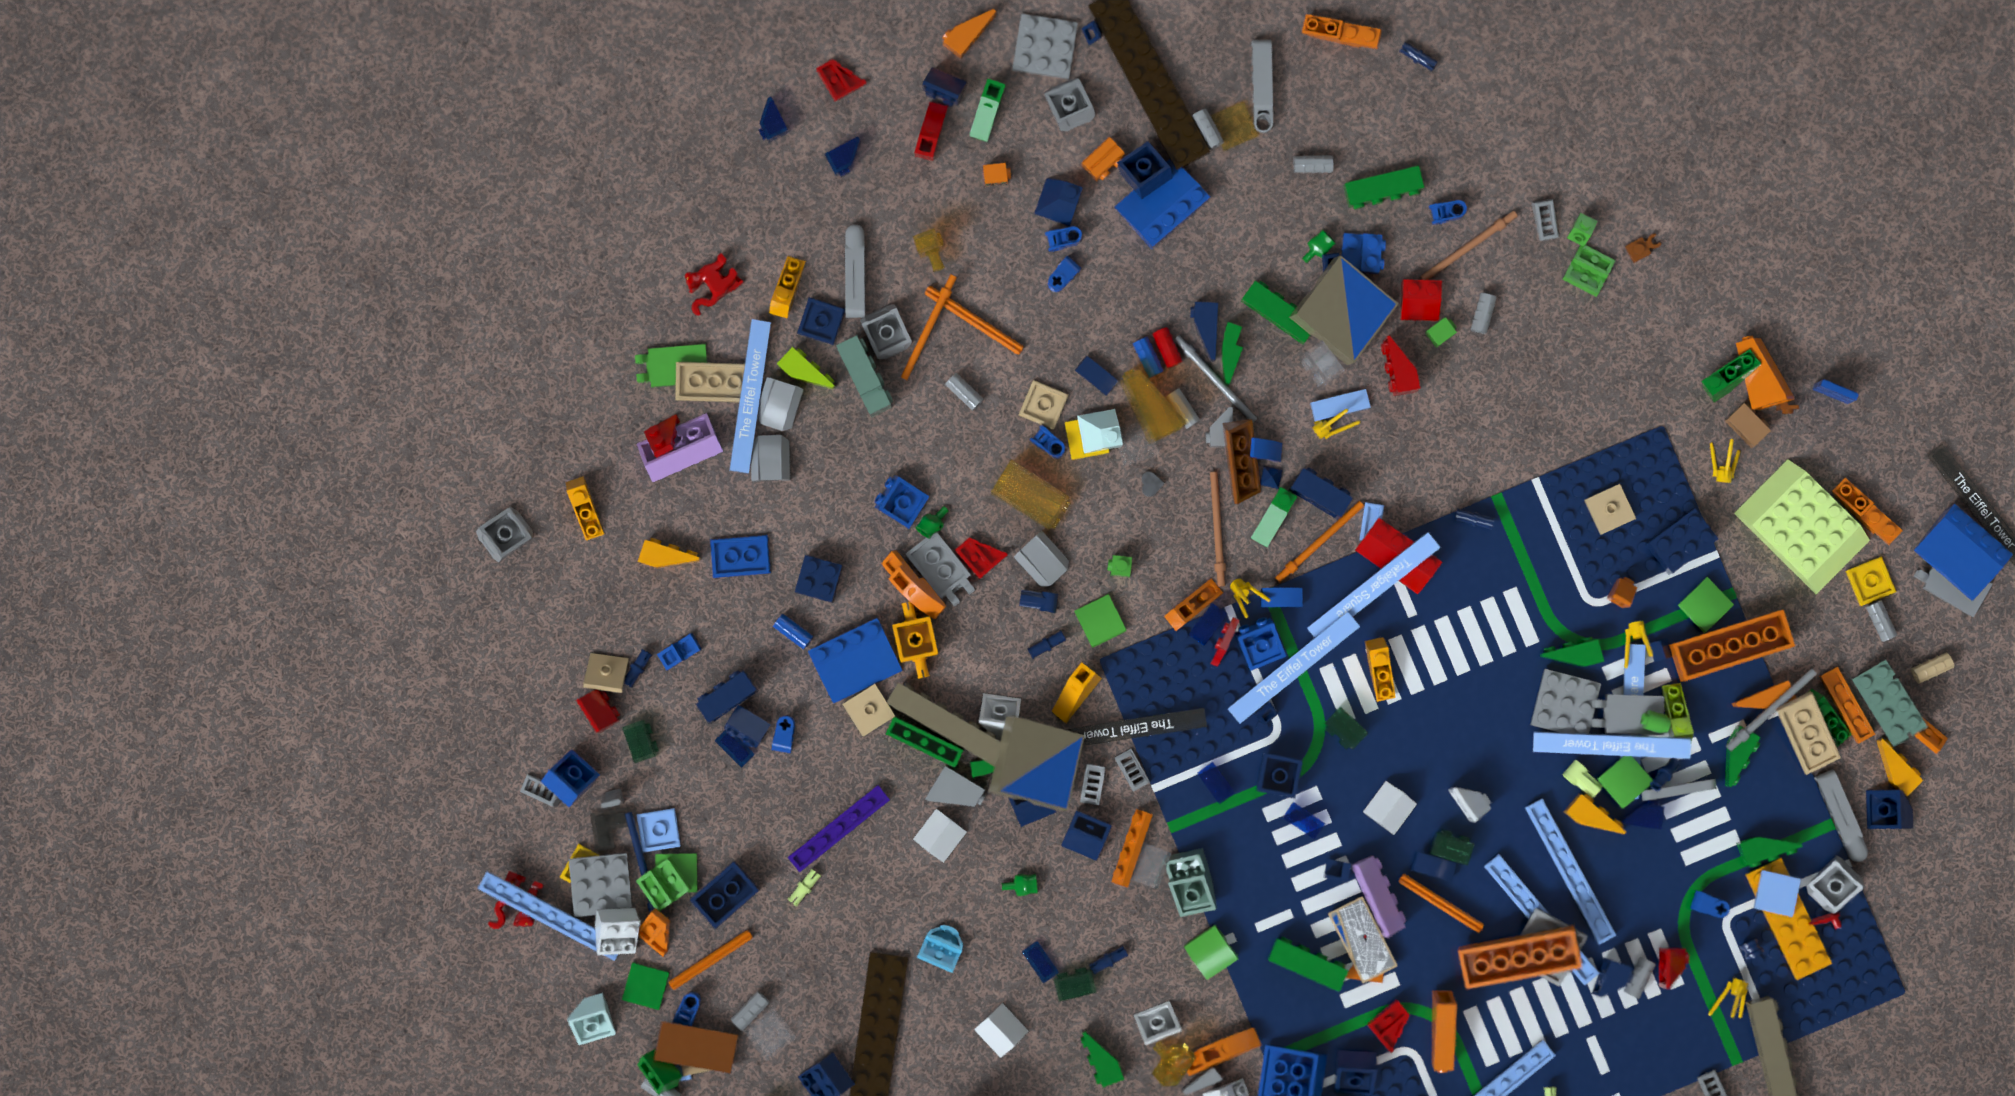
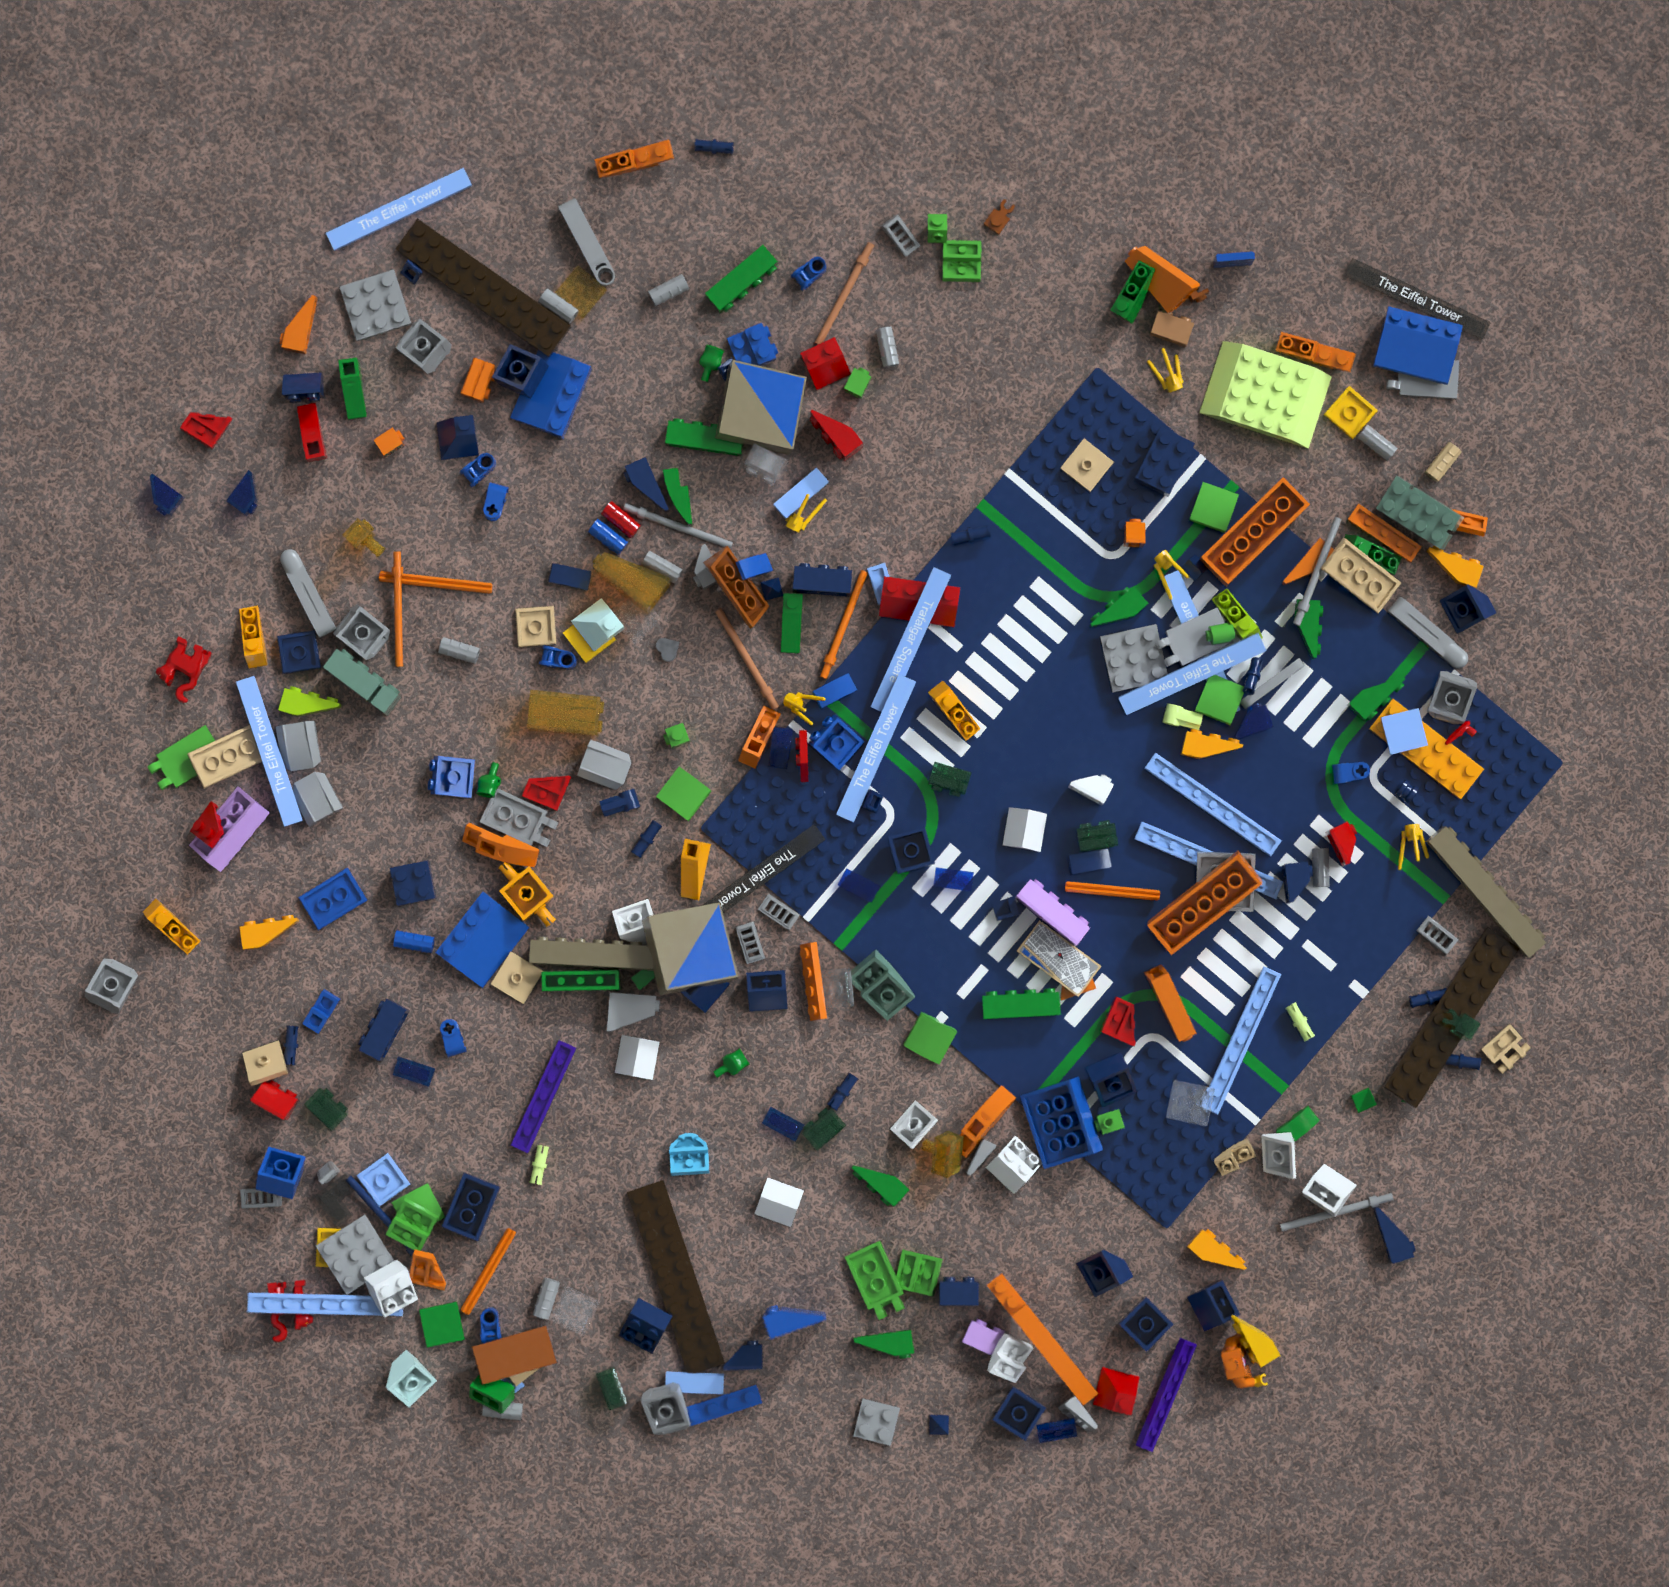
camera: 25 degrees left, 0 degrees up
(746, 726) = (415, 1047): dark blue brick -> none

